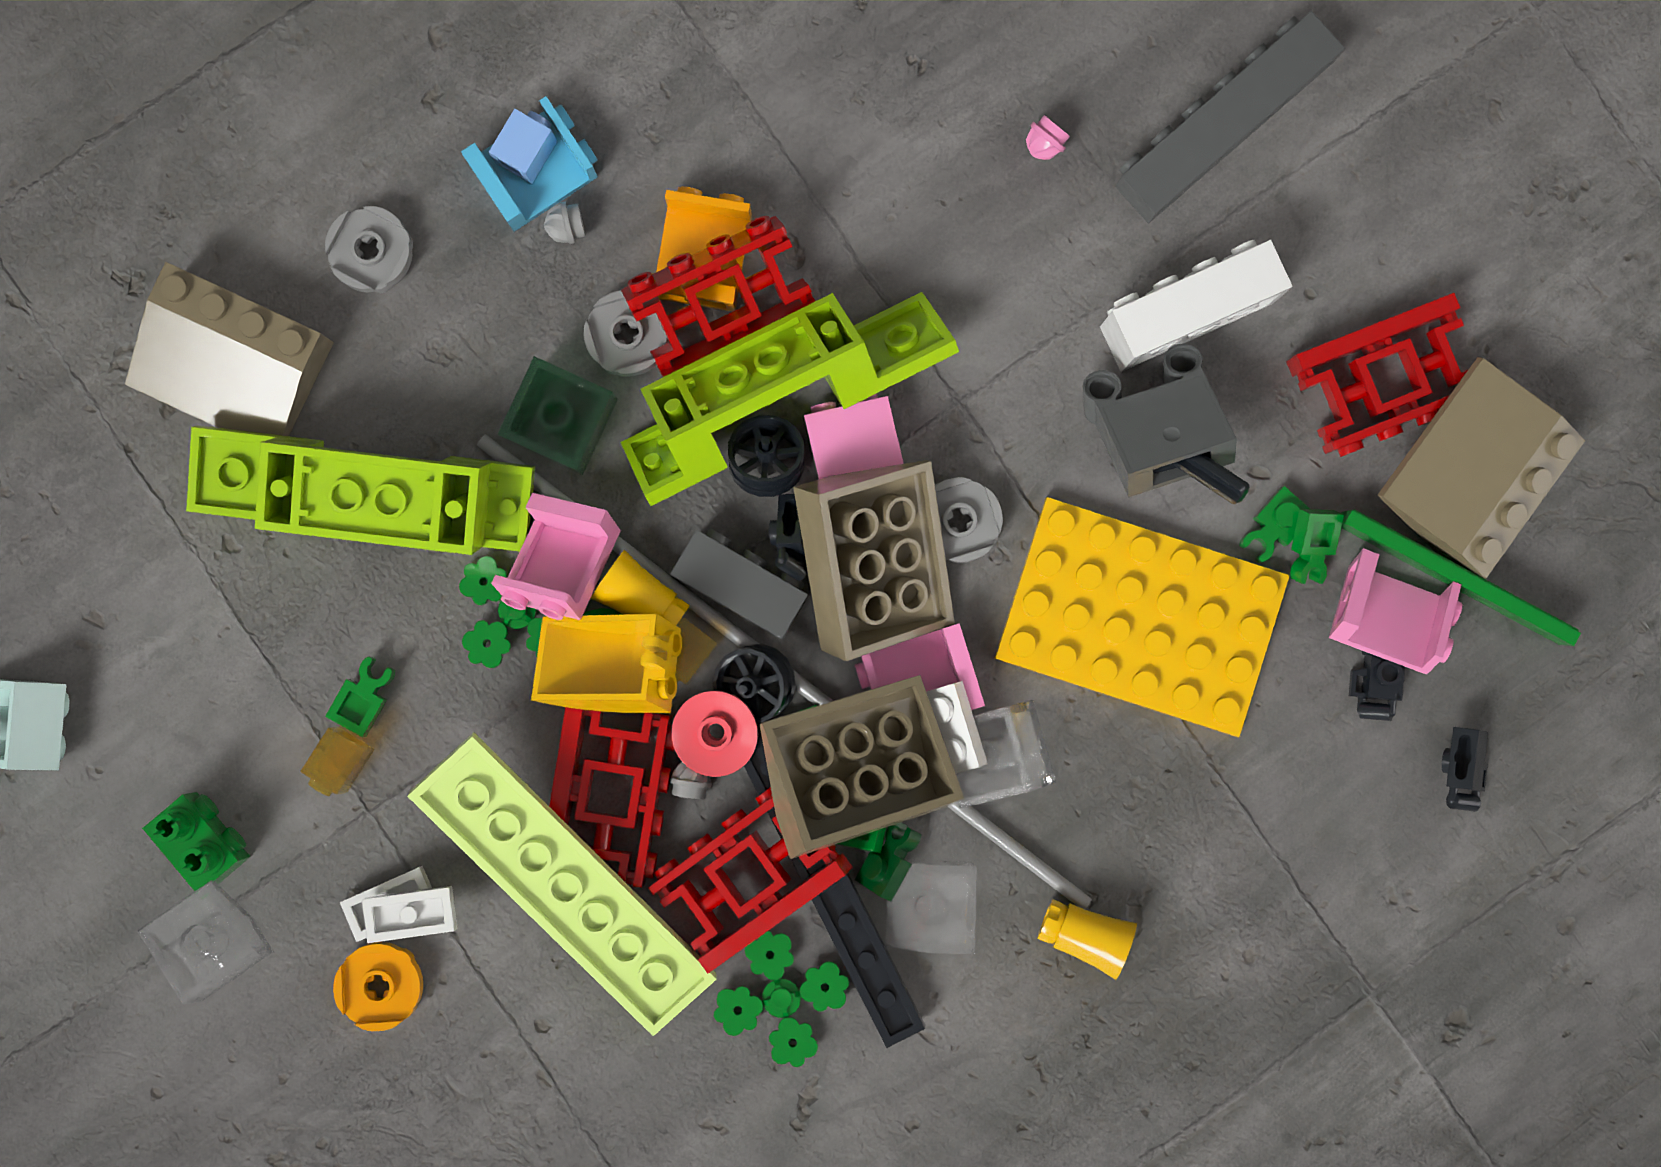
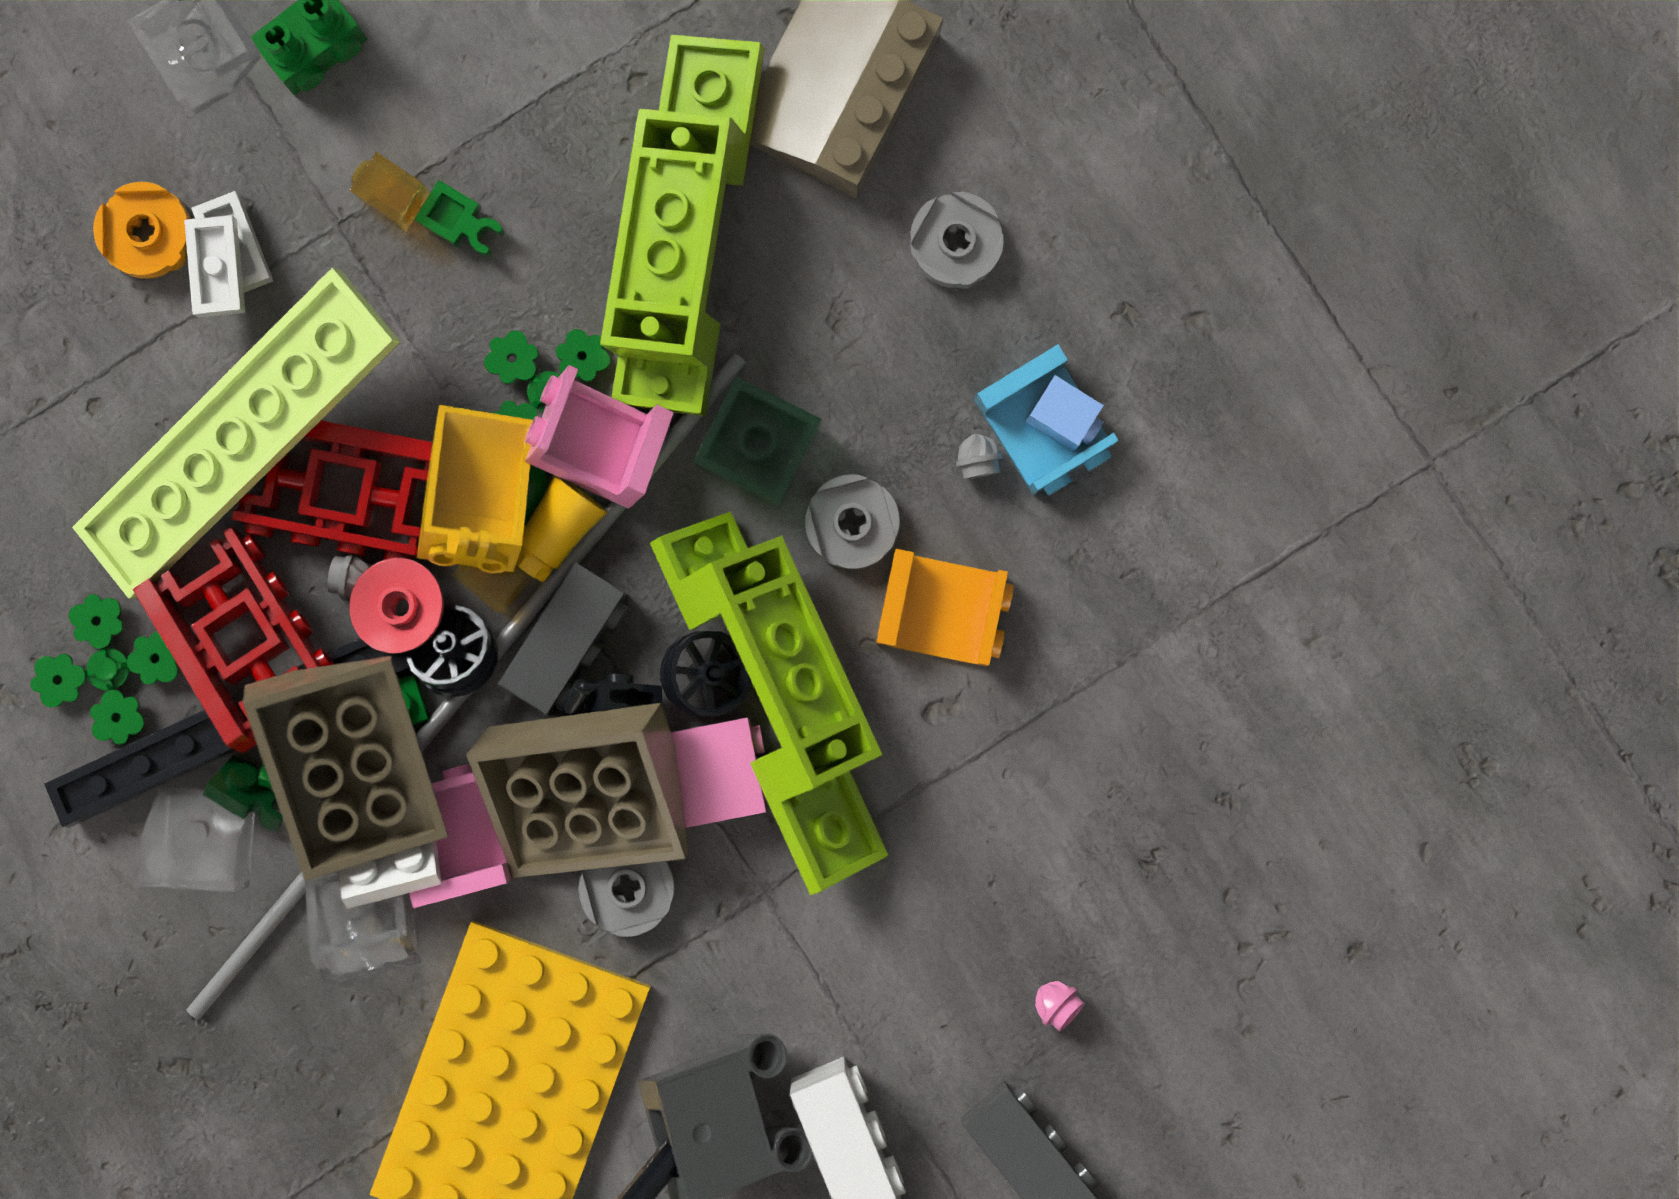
camera: 90 degrees right, 0 degrees up
(706, 269) = (911, 613): red fence -> none
(1088, 936) = (154, 1014): yellow plant -> none

